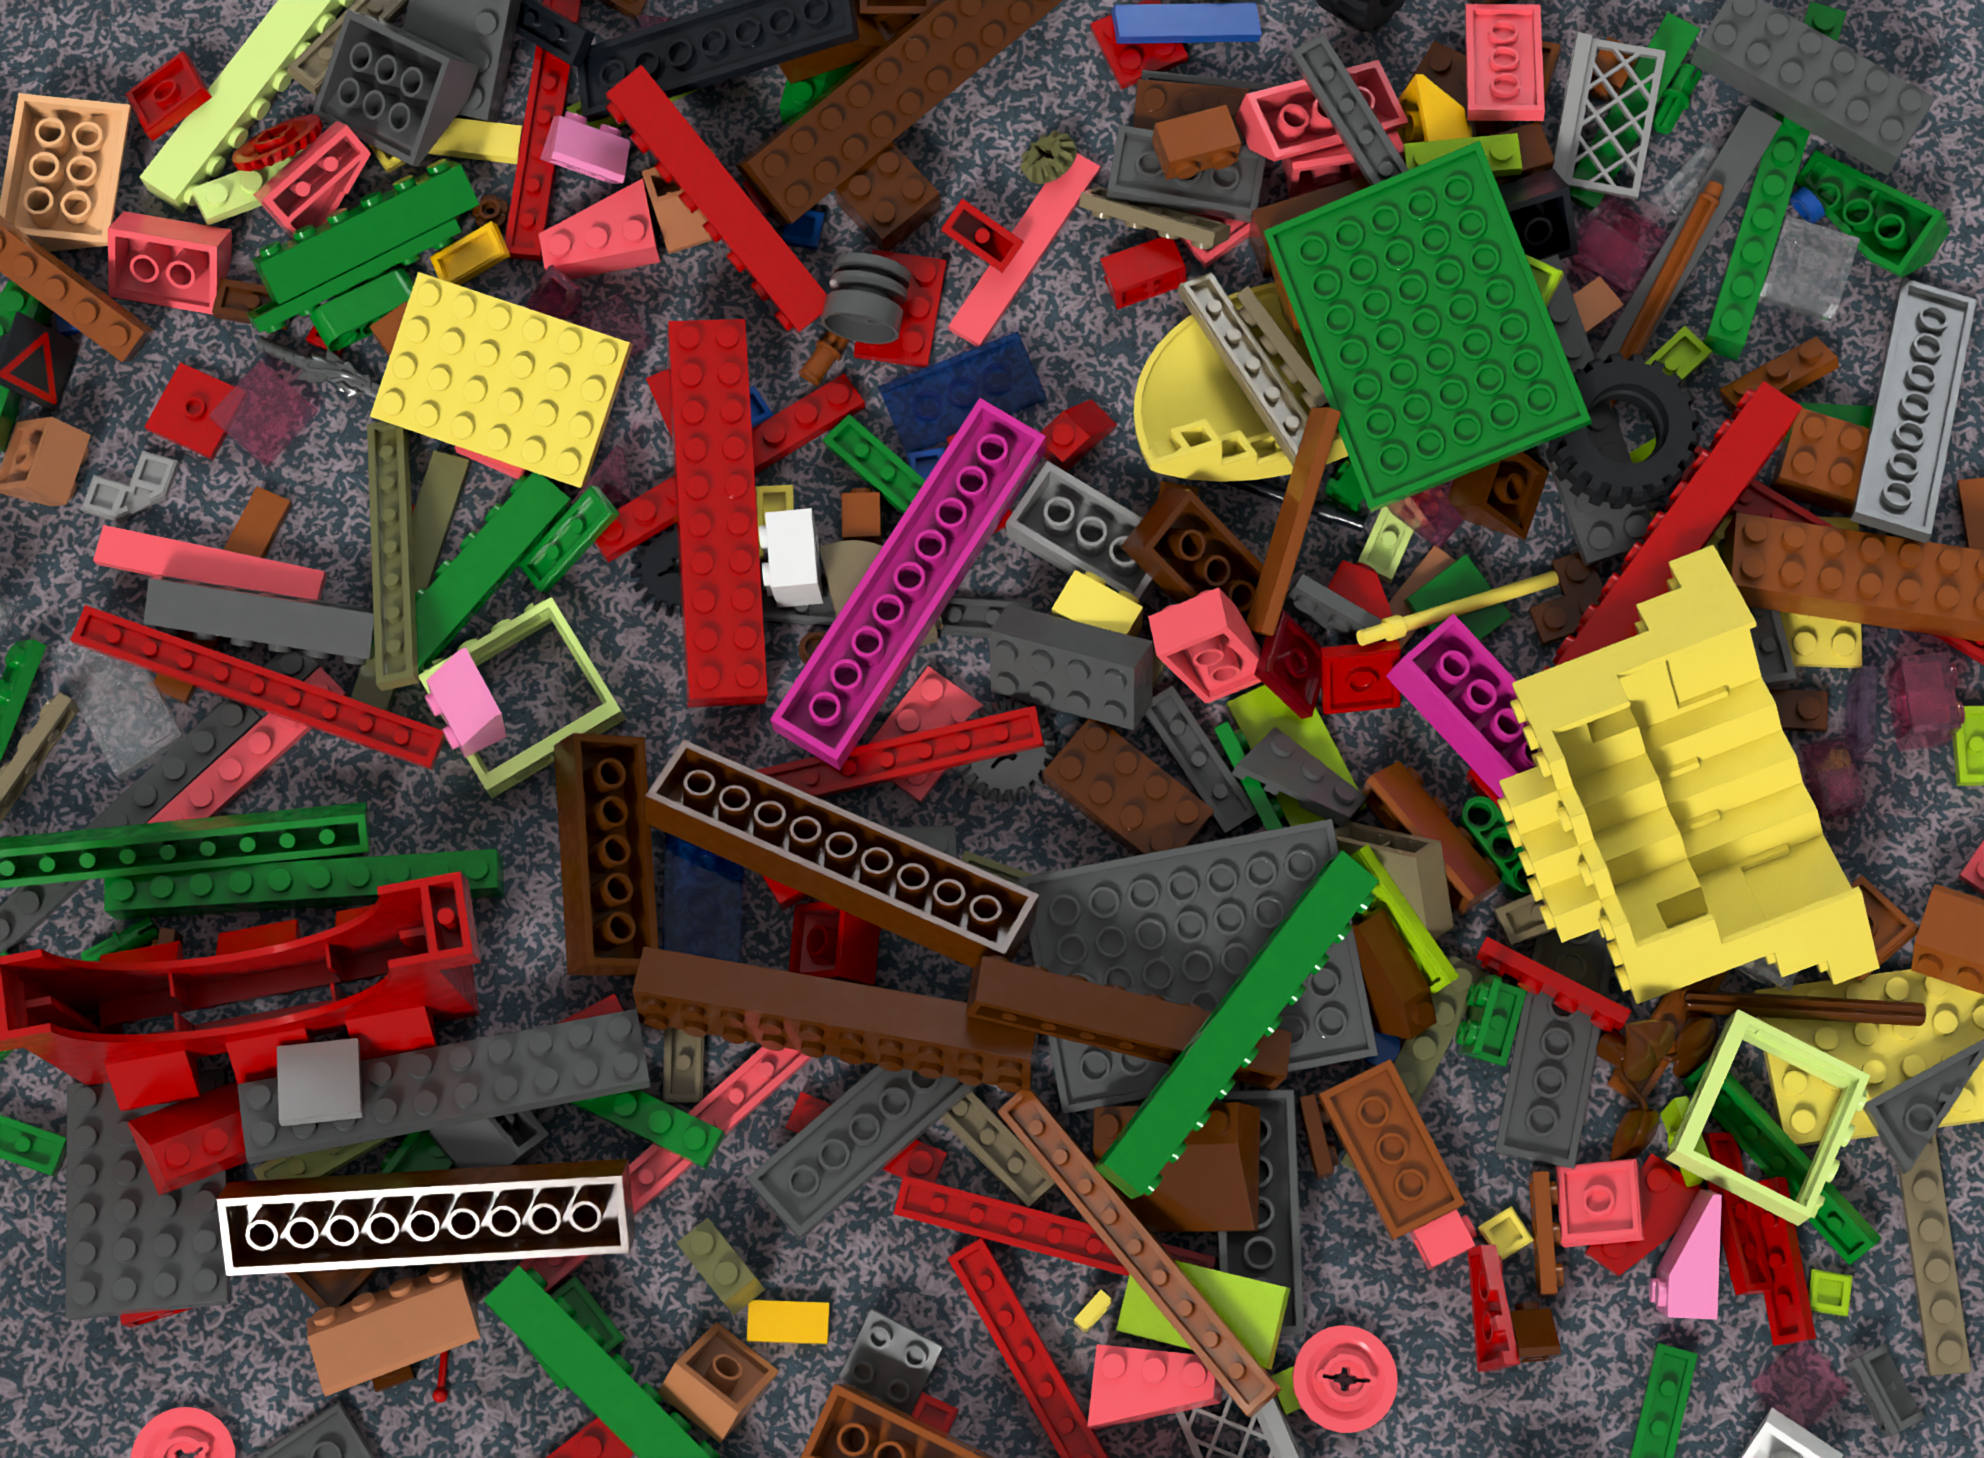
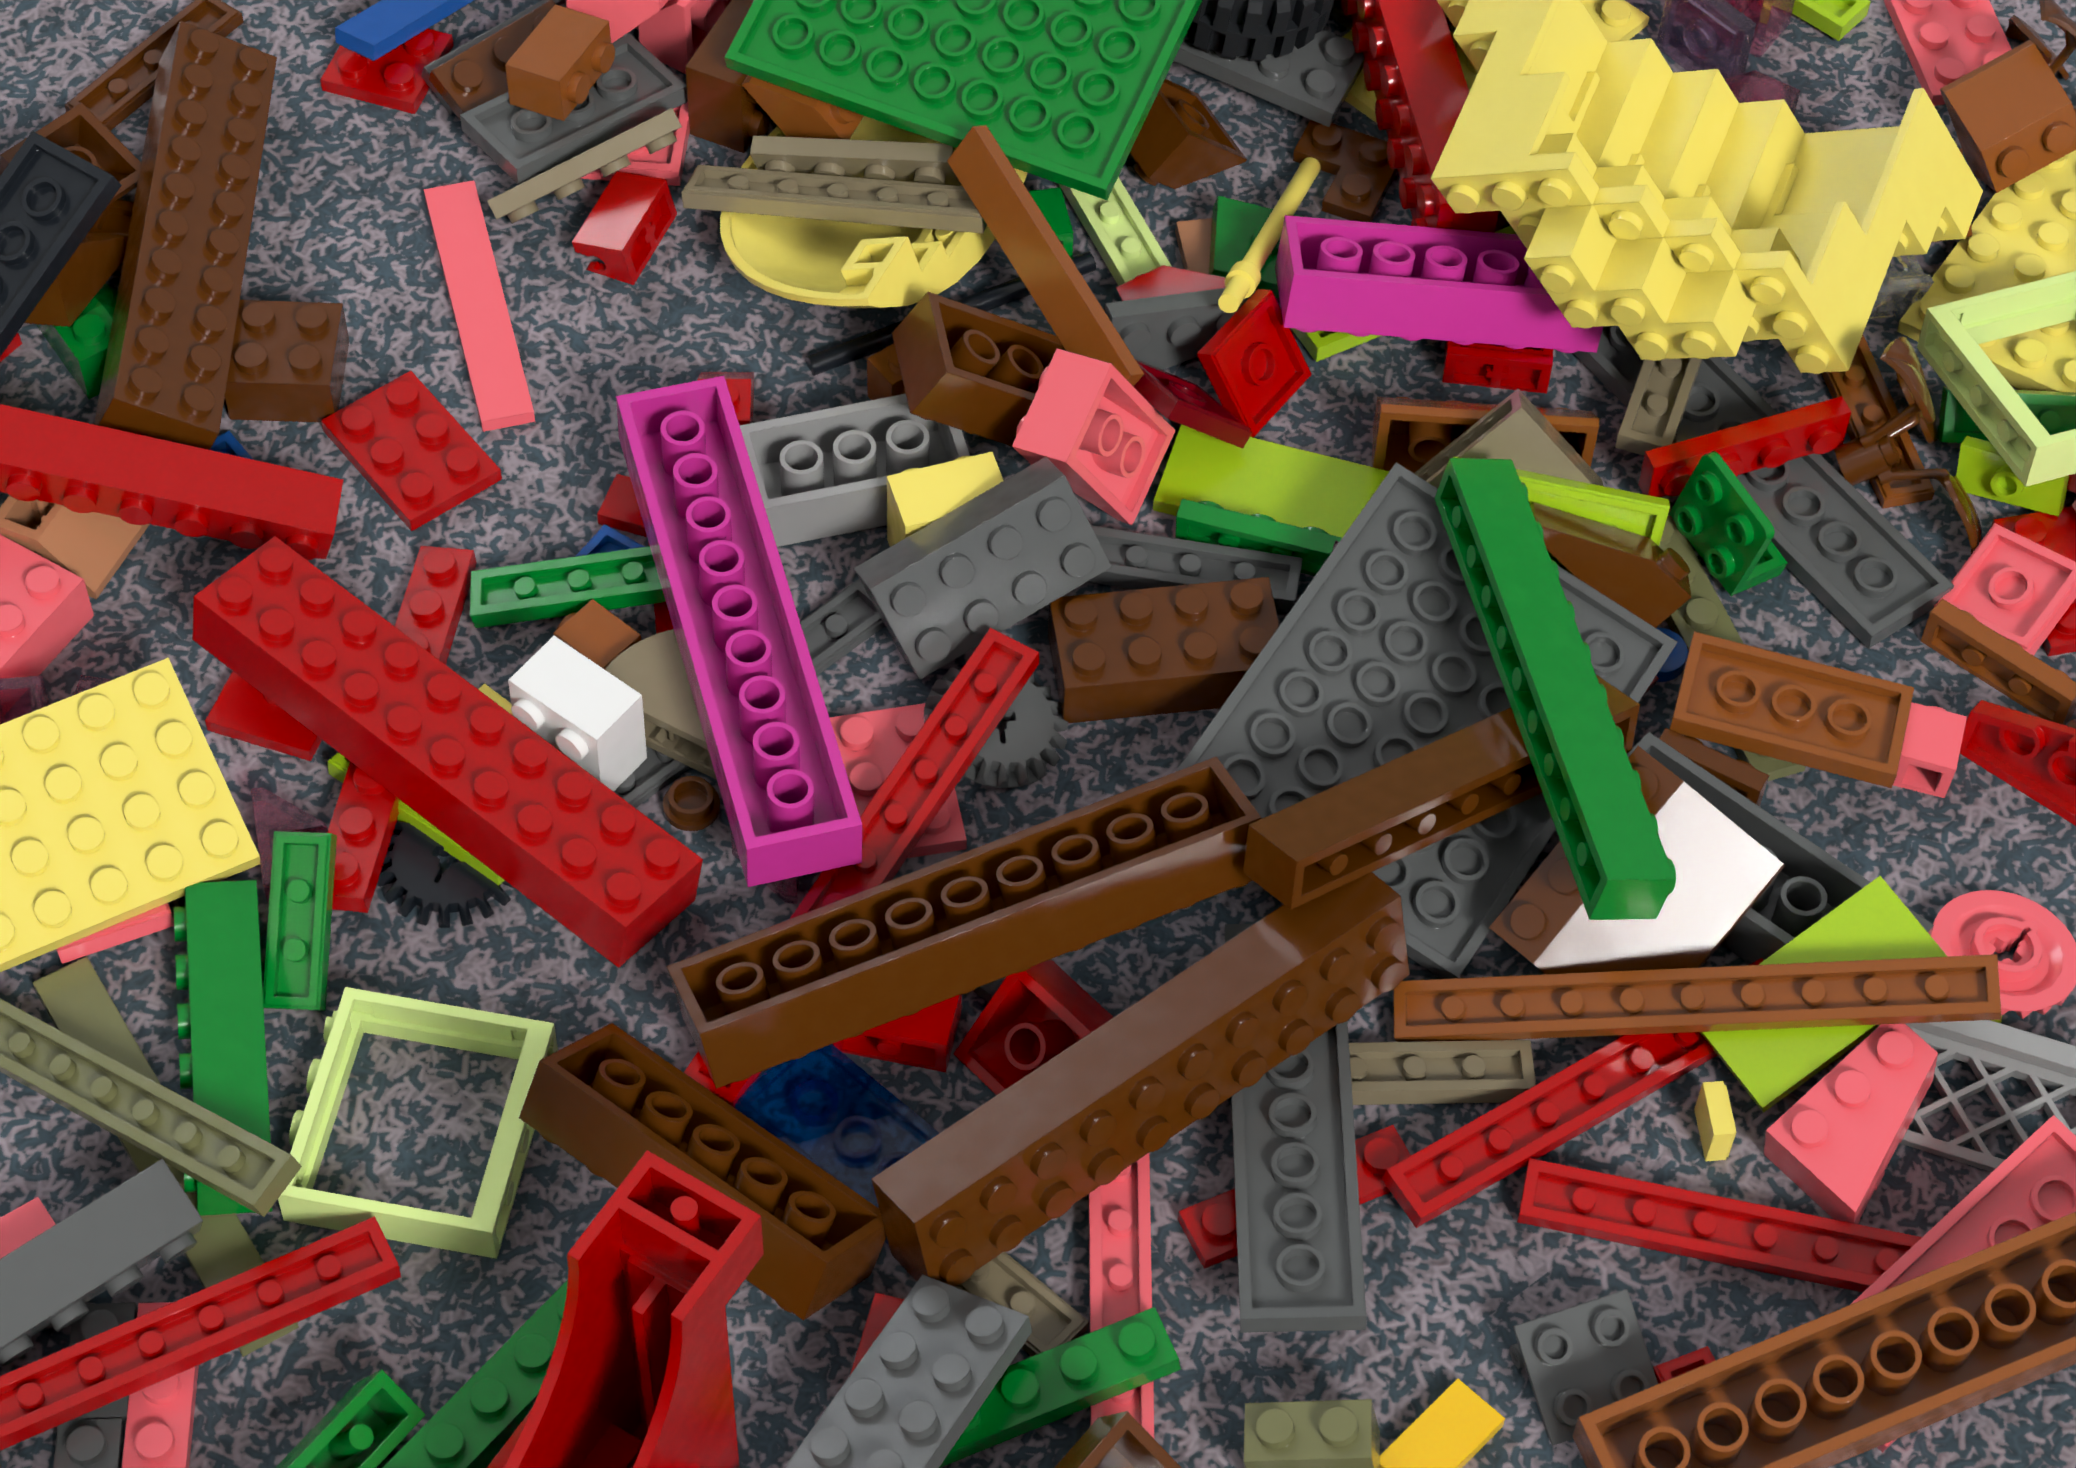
camera: 55 degrees left, 20 degrees down
(465, 704) = (378, 1146): bright pink slope -> none
(823, 358) = (379, 542): dark orange axle -> none
(866, 298) = (379, 434): dark grey wheel -> none
(939, 398) = (557, 473): clear blue tile -> none
(981, 235) = (423, 314): red slope -> none
(1044, 169) = (423, 216): olive gear -> none
(1294, 771) = (1294, 488): dark grey wing -> none
(1428, 515) = (1141, 194): clear pink slope -> none
(1489, 833) = (1558, 386): green beam -> none
(1506, 1233) = (1963, 692): light yellow tile -> none
(1805, 1007) = (1967, 279): reddish brown axle -> none

